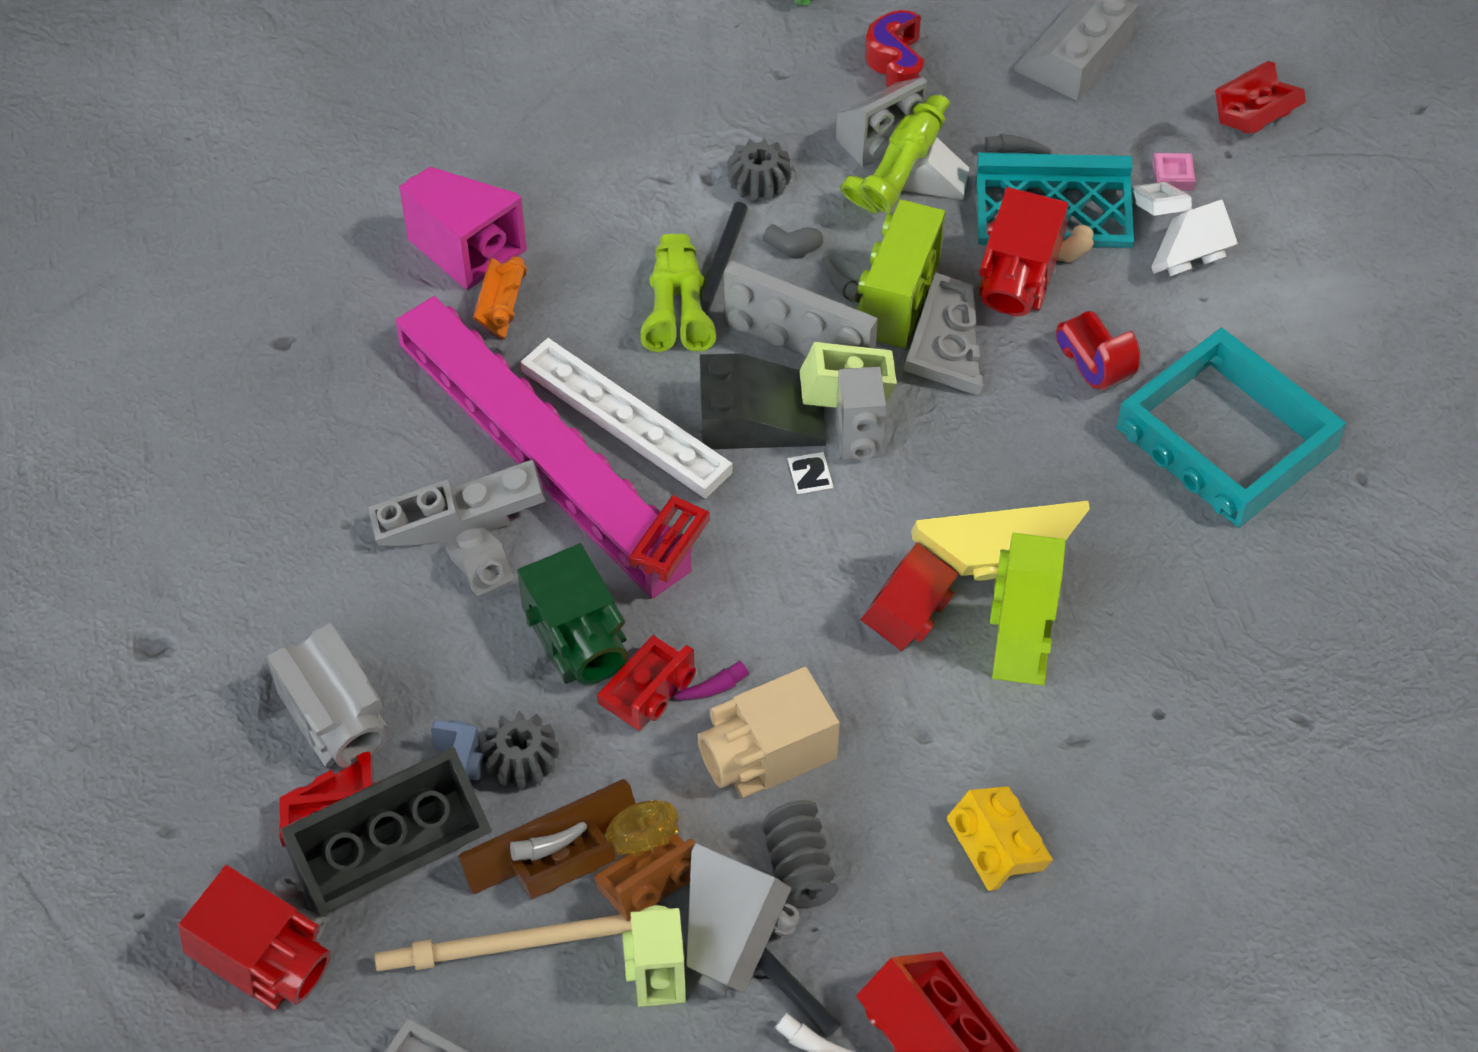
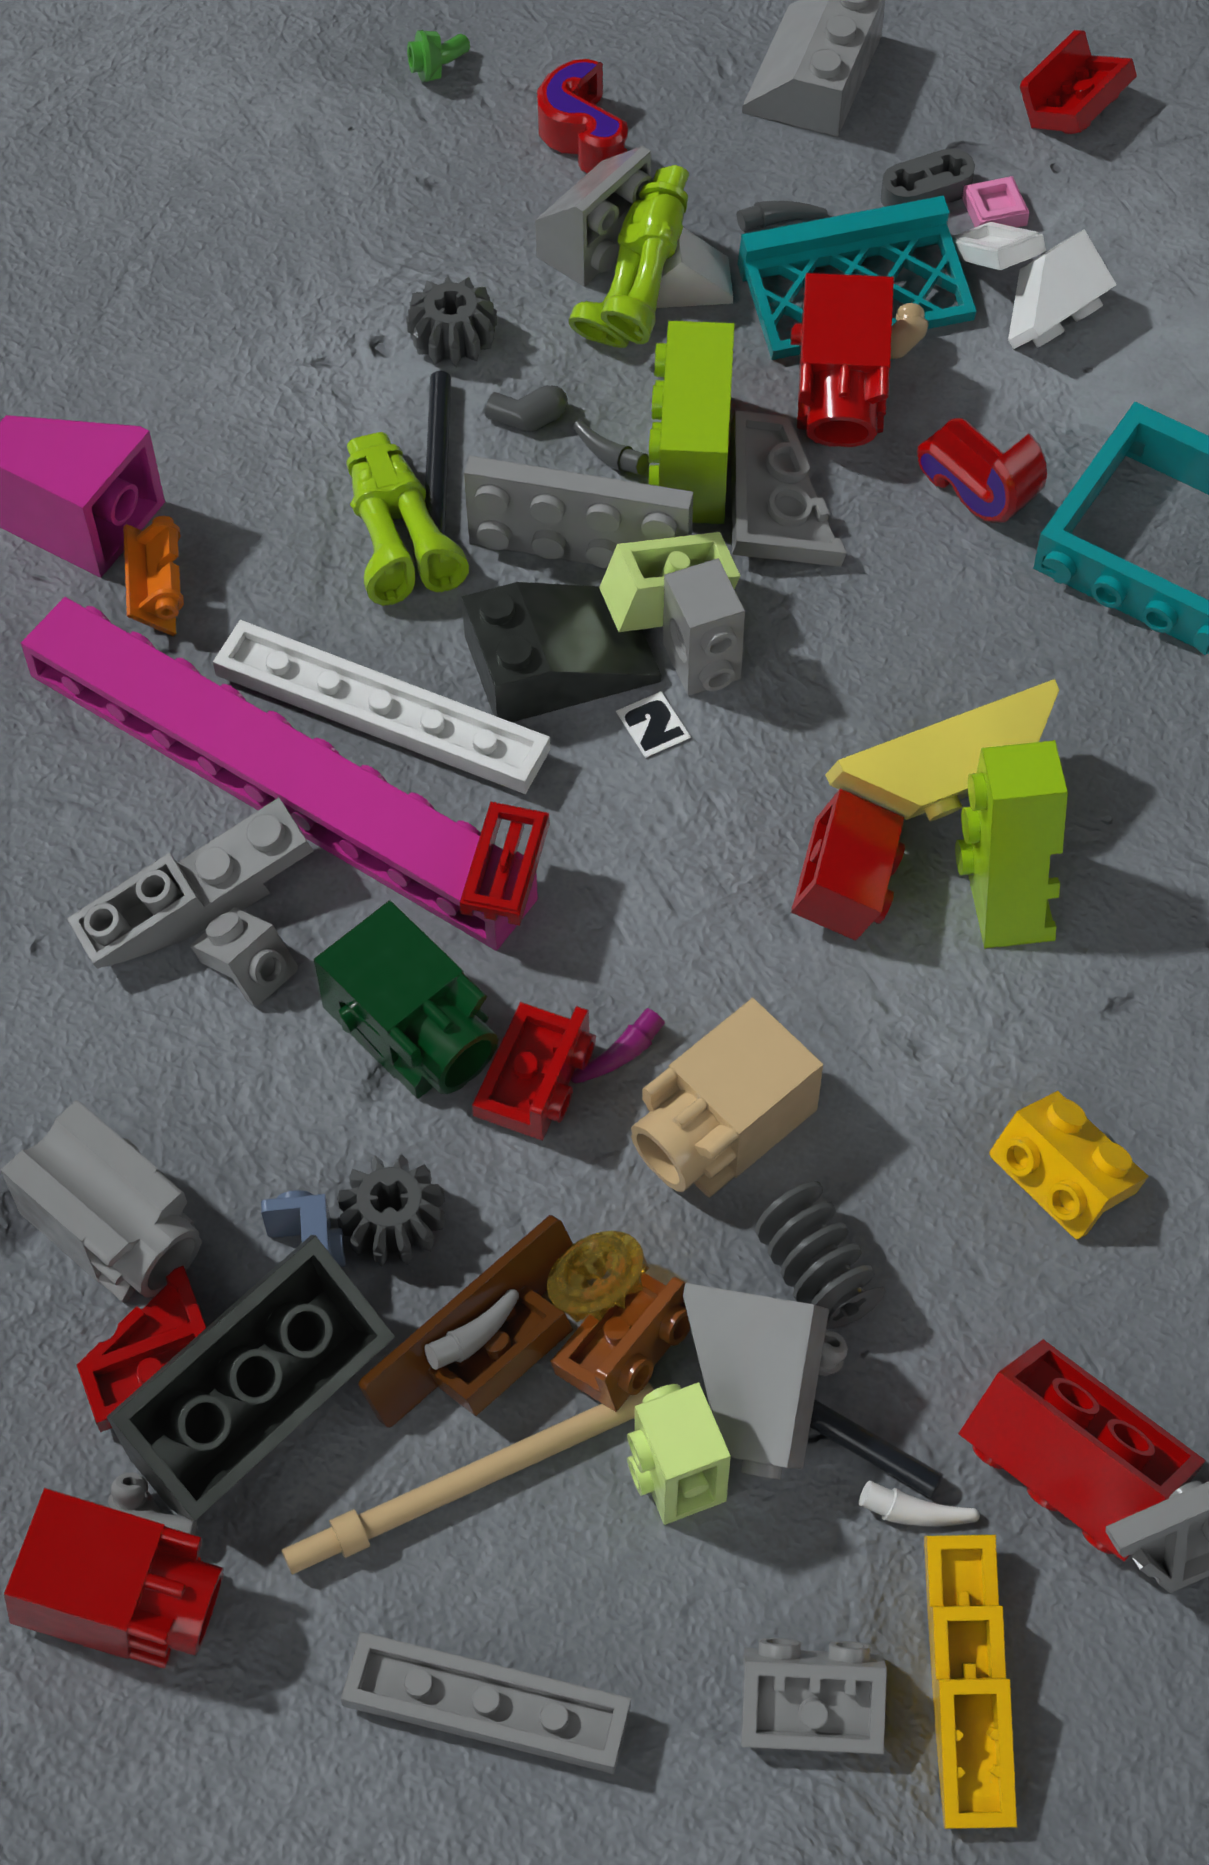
camera: 15 degrees left, 5 degrees up
(1131, 142) = (928, 177): none -> dark grey beam

